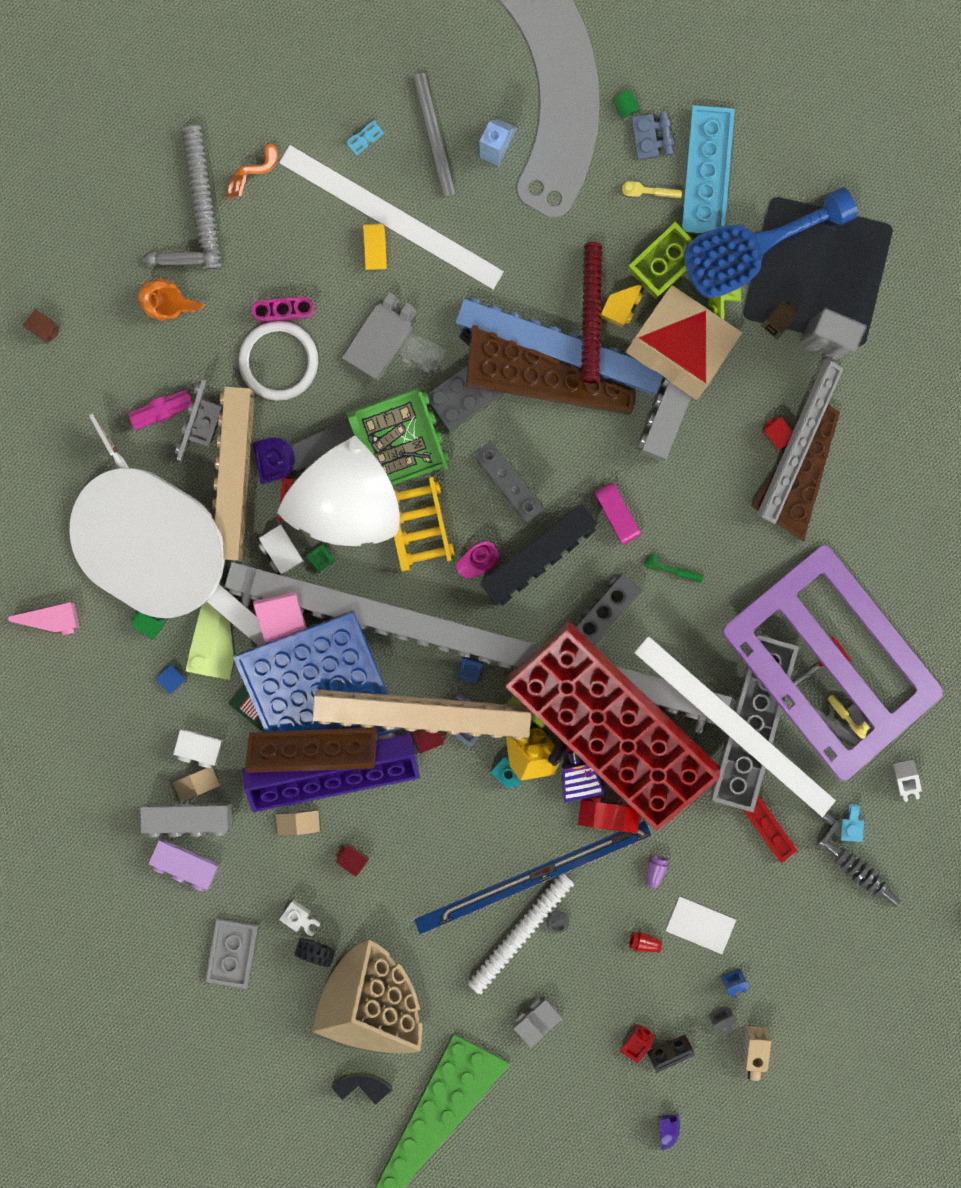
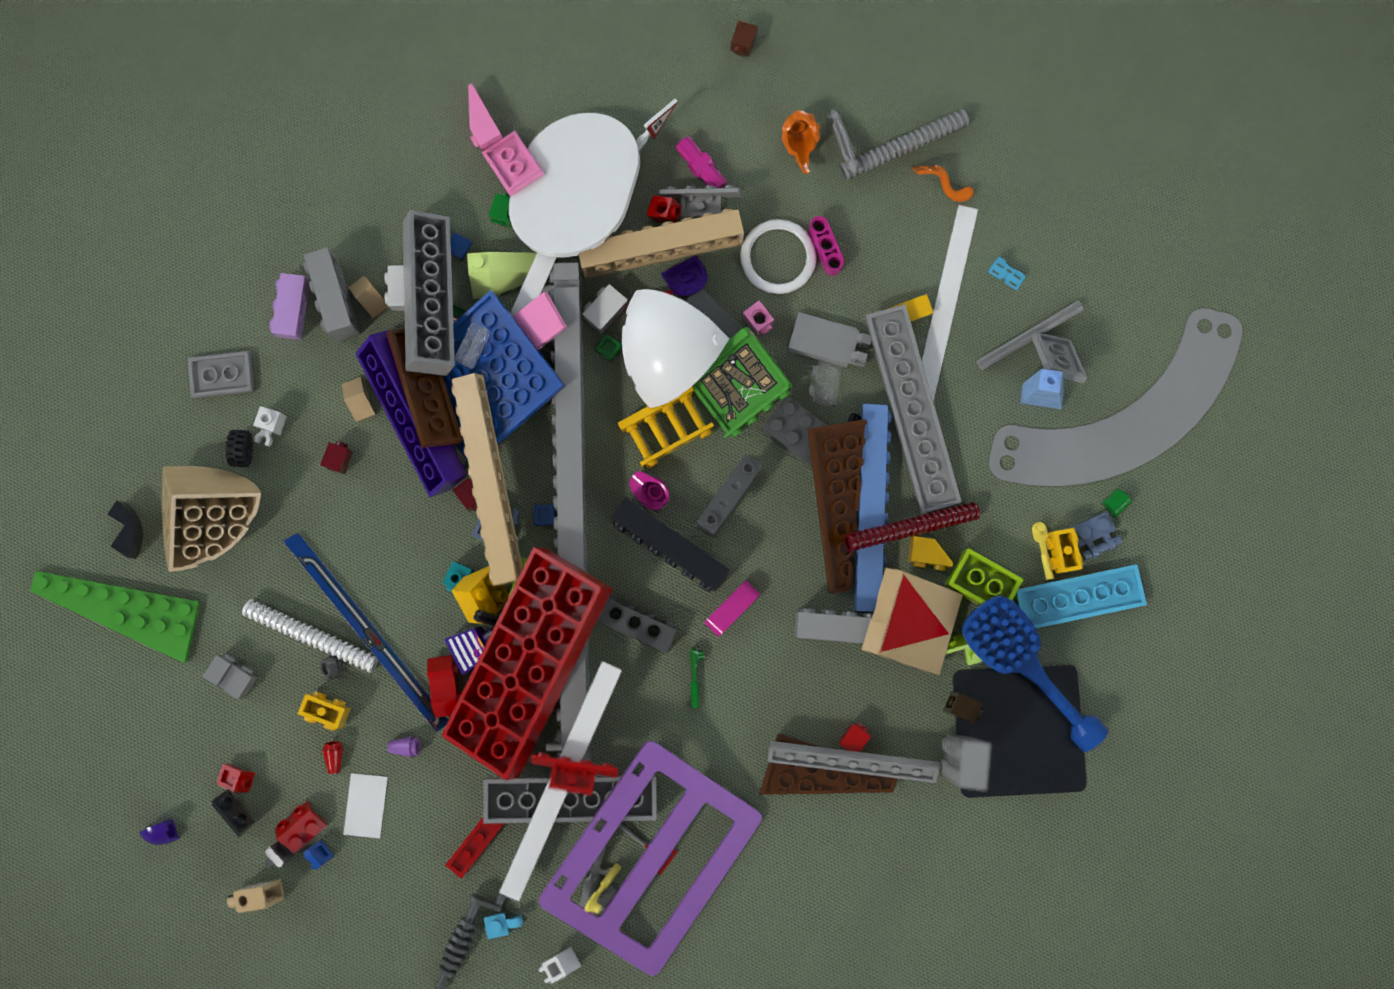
camera: 70 degrees right, 5 degrees down
(103, 599) = (512, 163): none -> bright pink tile
(193, 466) = (664, 209): none -> red brick
(216, 720) = (428, 293): none -> light grey brick
(286, 689) = (472, 345): none -> clear bracket
(327, 398) = (758, 310): none -> bright pink brick
(467, 115) = (1060, 356): none -> light grey tile
(474, 275) = (913, 409): none -> light grey plate
(596, 942) = (325, 711): none -> yellow brick
(659, 172) = (1064, 550): none -> yellow brick
(703, 993) = (299, 827): none -> red bracket
(734, 712) = (571, 775): none -> red bracket

